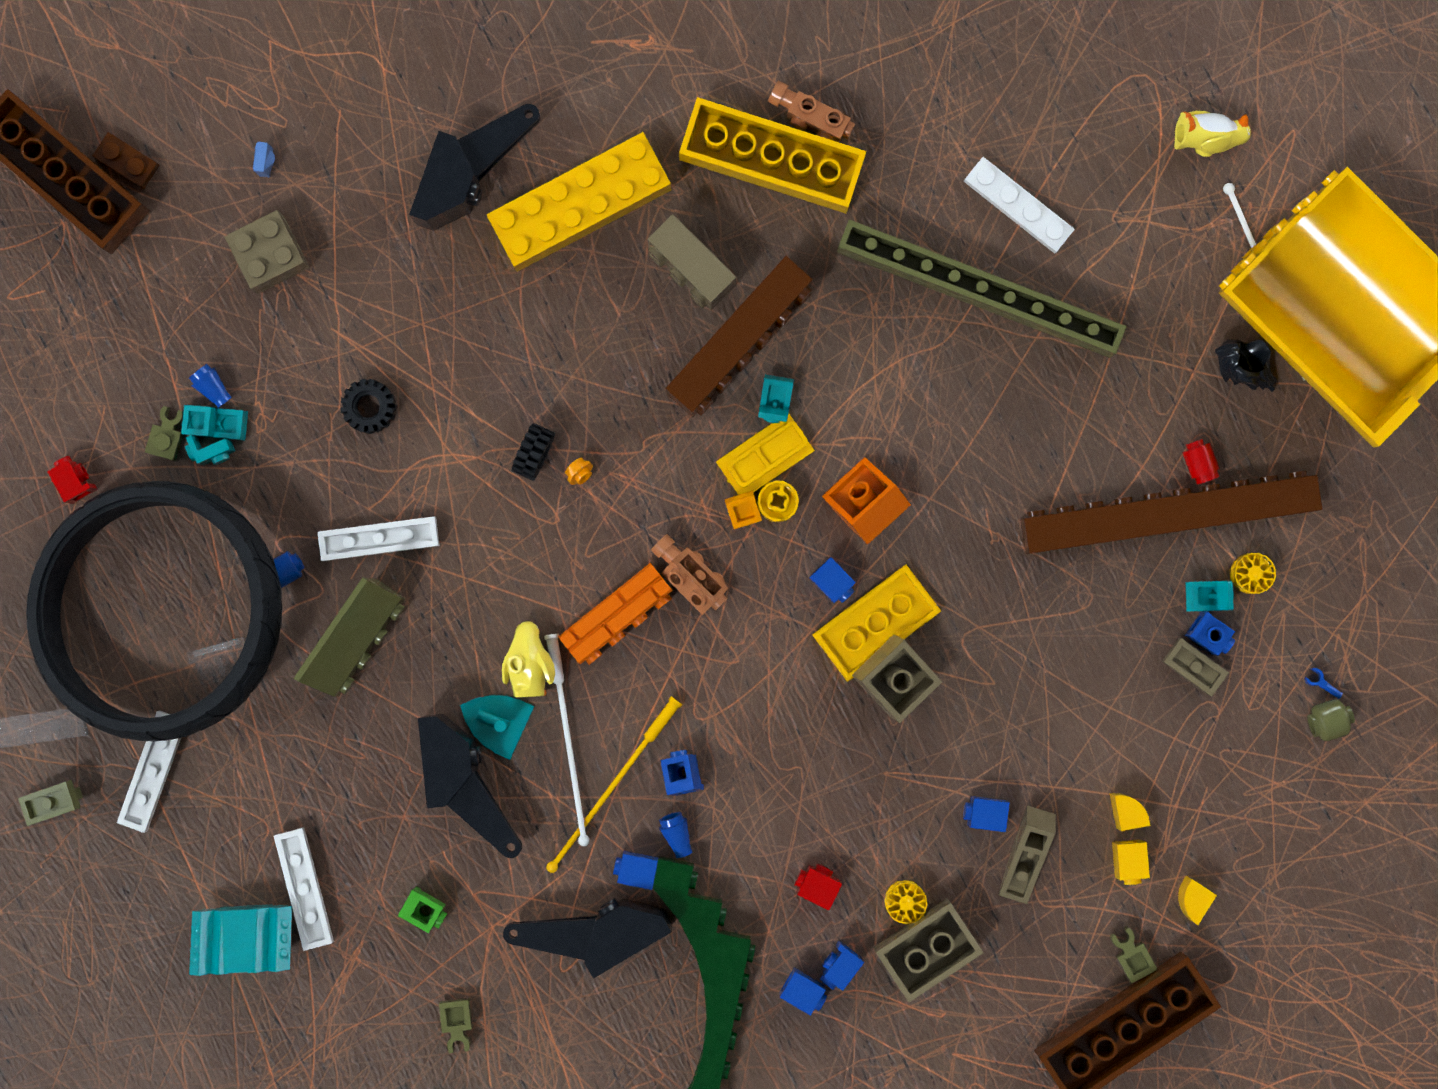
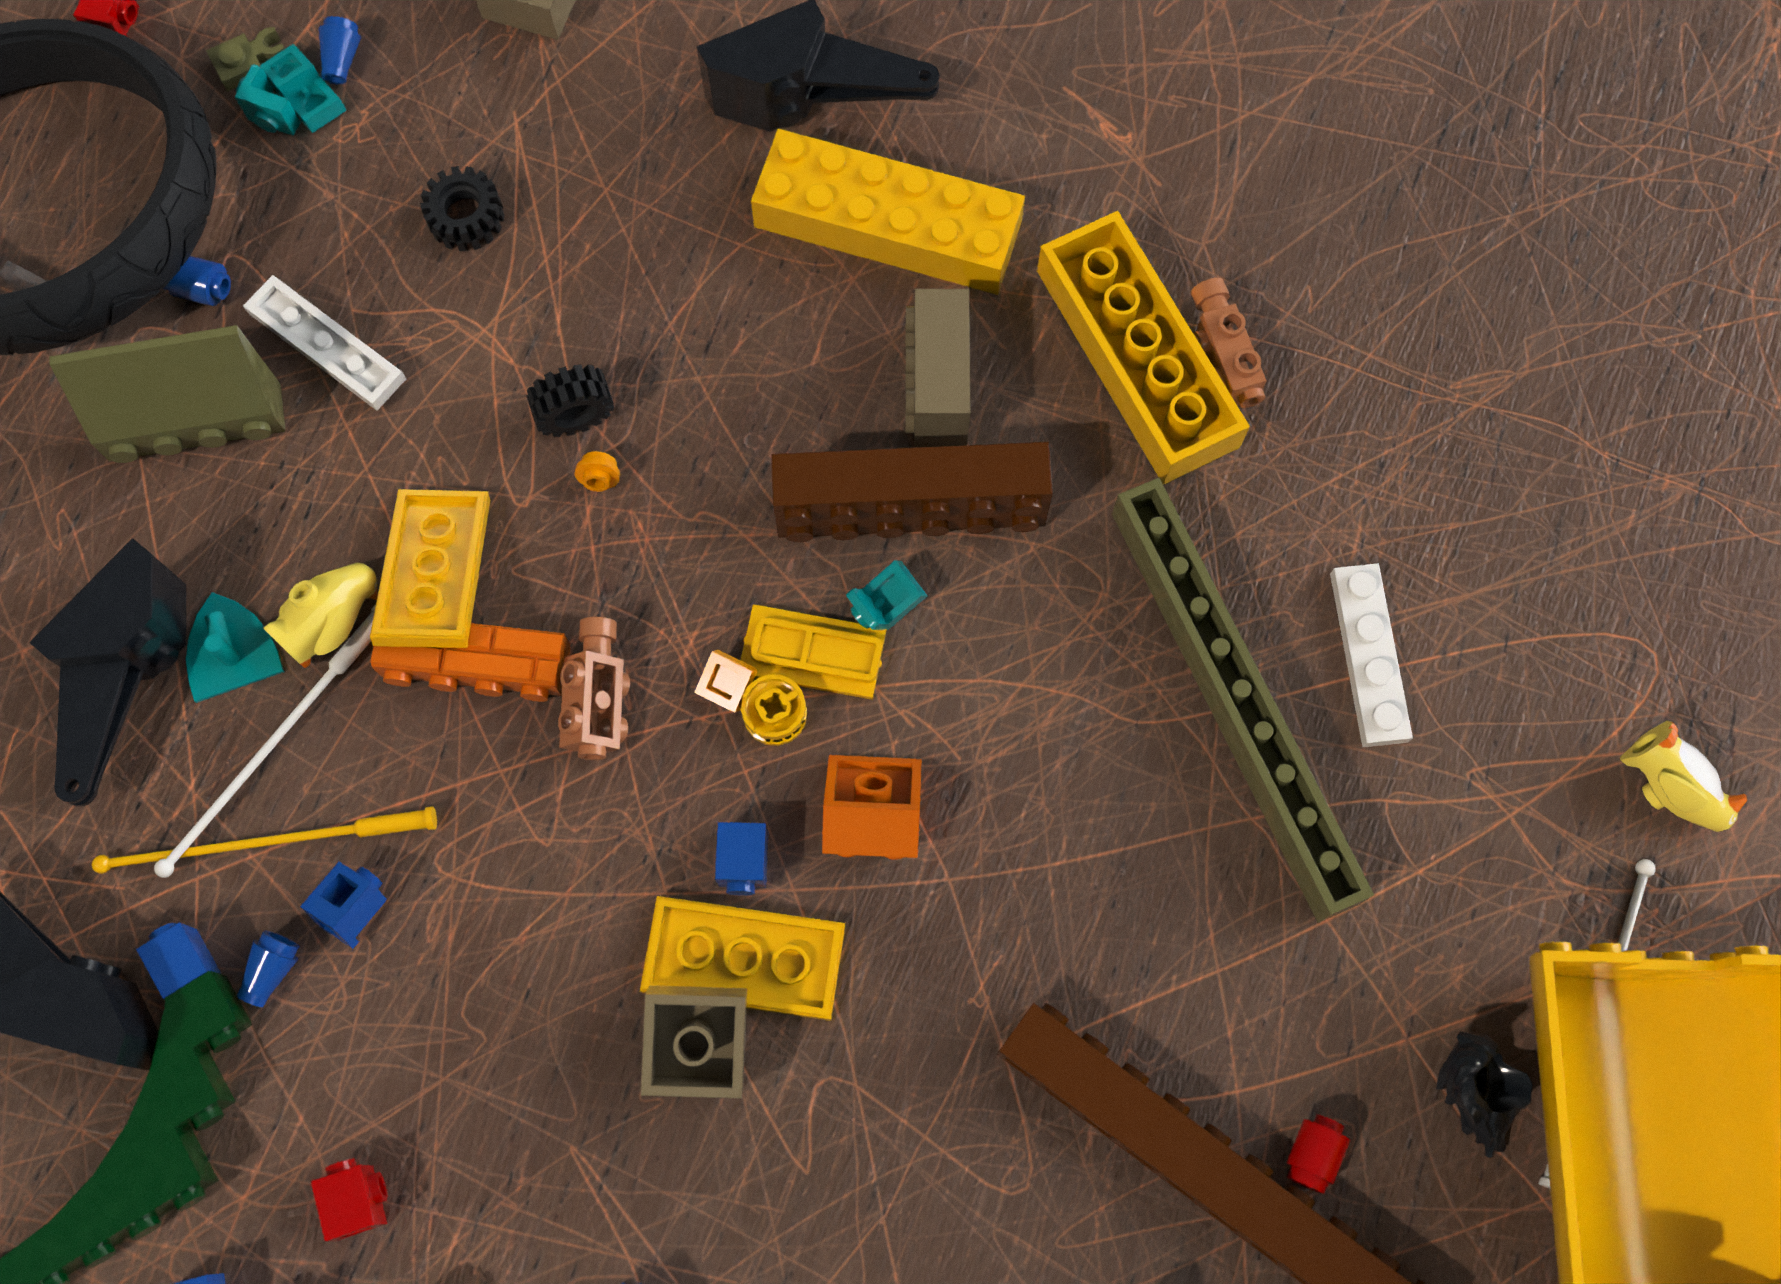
camera: 45 degrees right, 15 degrees down
(555, 593) = (431, 569): none -> yellow tile

